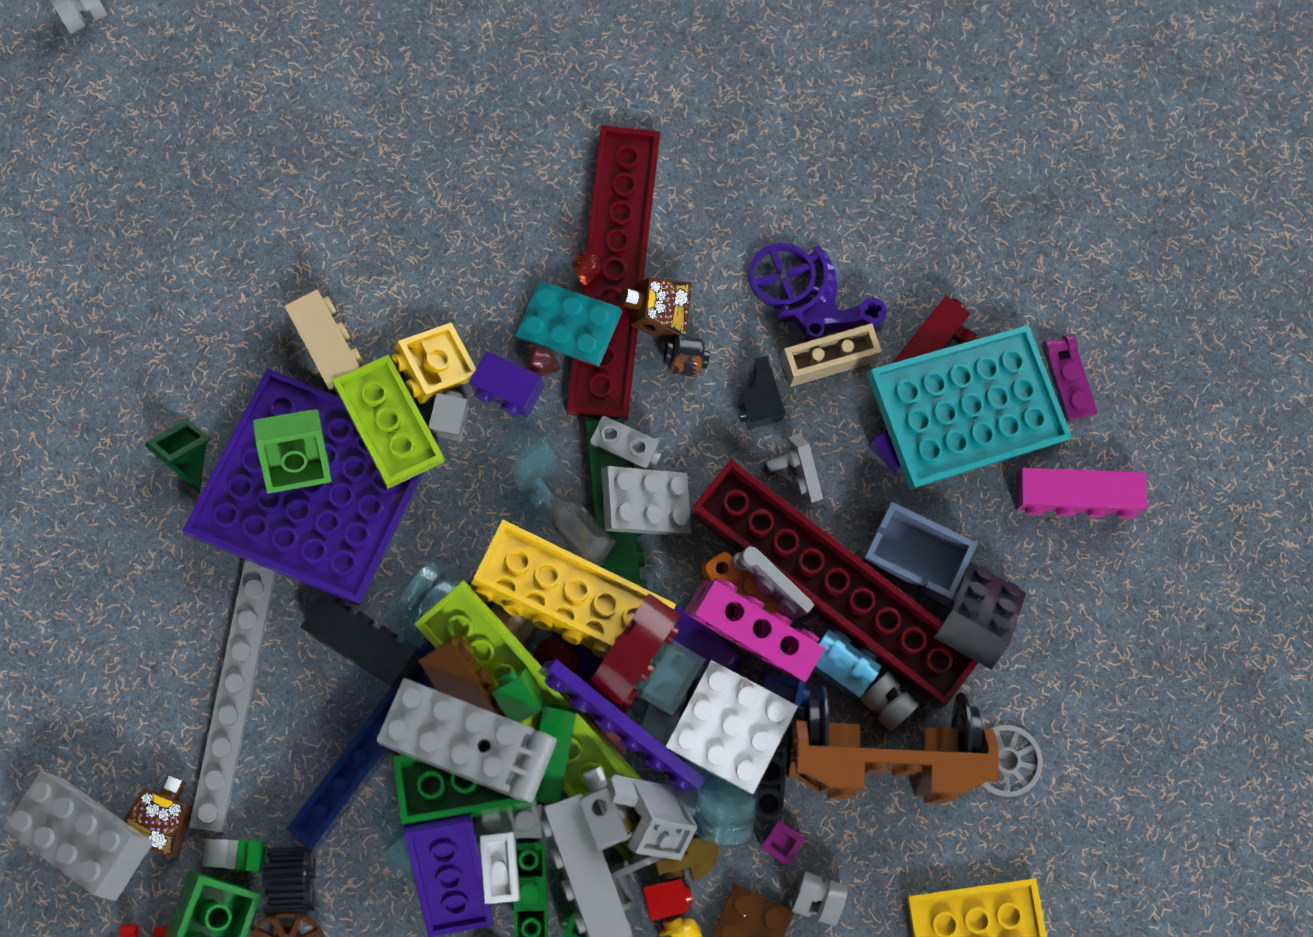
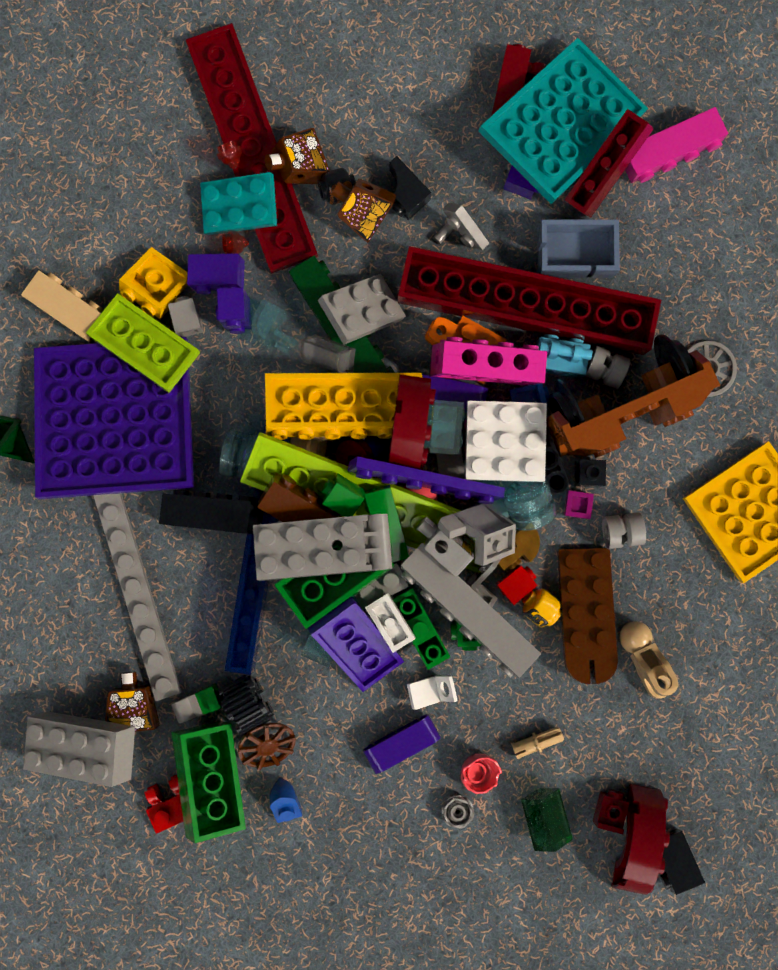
camera: 20 degrees left, 10 degrees up
(292, 451) = (83, 399): bright green brick -> none
(505, 434) = (233, 309): none -> dark purple brick
(626, 443) = (326, 273): light grey bracket -> none
(702, 392) = (363, 206): none -> reddish brown torso
(772, 582) = (483, 322): light grey plate -> none
(812, 813) = (590, 473): none -> black brick
(820, 314) = (420, 106): dark purple piece -> none
(830, 355) = (443, 132): tan brick -> none
(981, 616) = (647, 272): black brick -> none
(994, 477) = (609, 163): none -> dark red brick
(1070, 378) = (625, 63): magenta plate -> none

